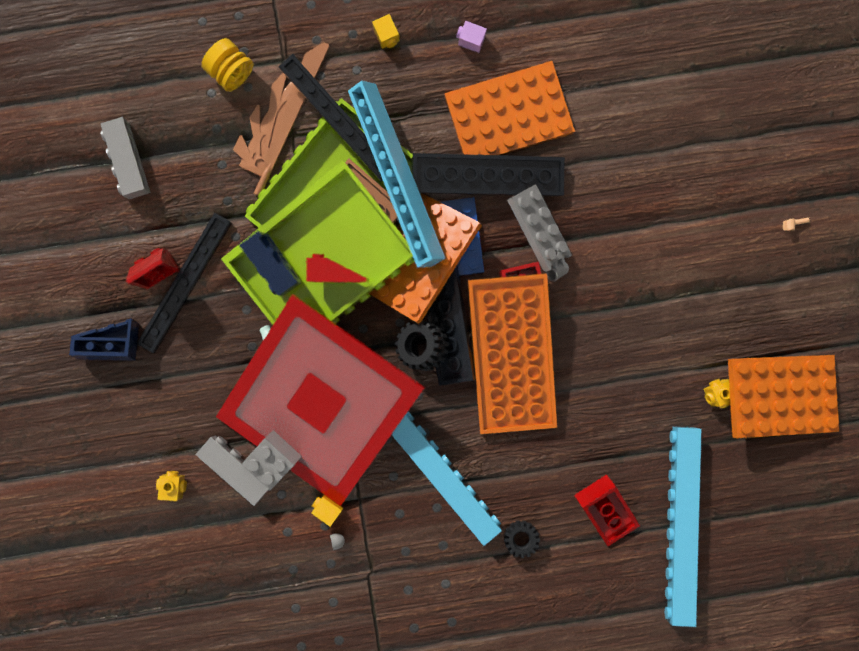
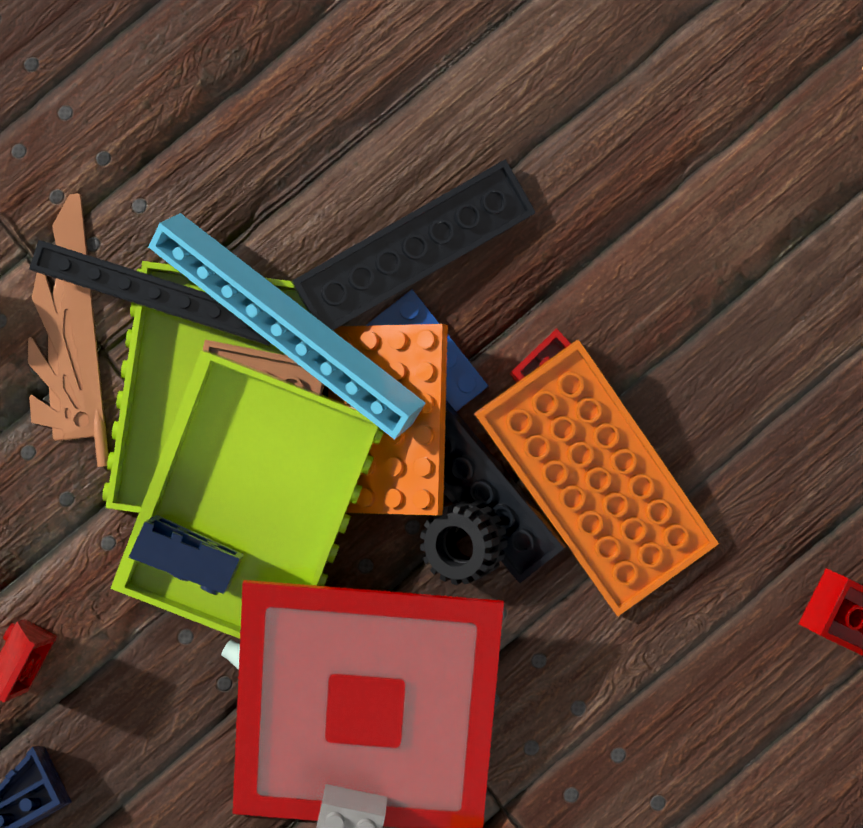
camera: 25 degrees left, 0 degrees up
(184, 283) = (75, 652): black tile -> none
(326, 270) = (274, 516): red slope -> none
(386, 31) = (150, 128): yellow brick -> none
(446, 480) = (609, 709): medium azure brick -> none
(471, 36) = (273, 64): lavender brick -> none
(510, 112) = (391, 139): orange plate -> none
(530, 547) = (775, 742): black tyre -> none
(541, 232) = (535, 284): light grey hinge -> none

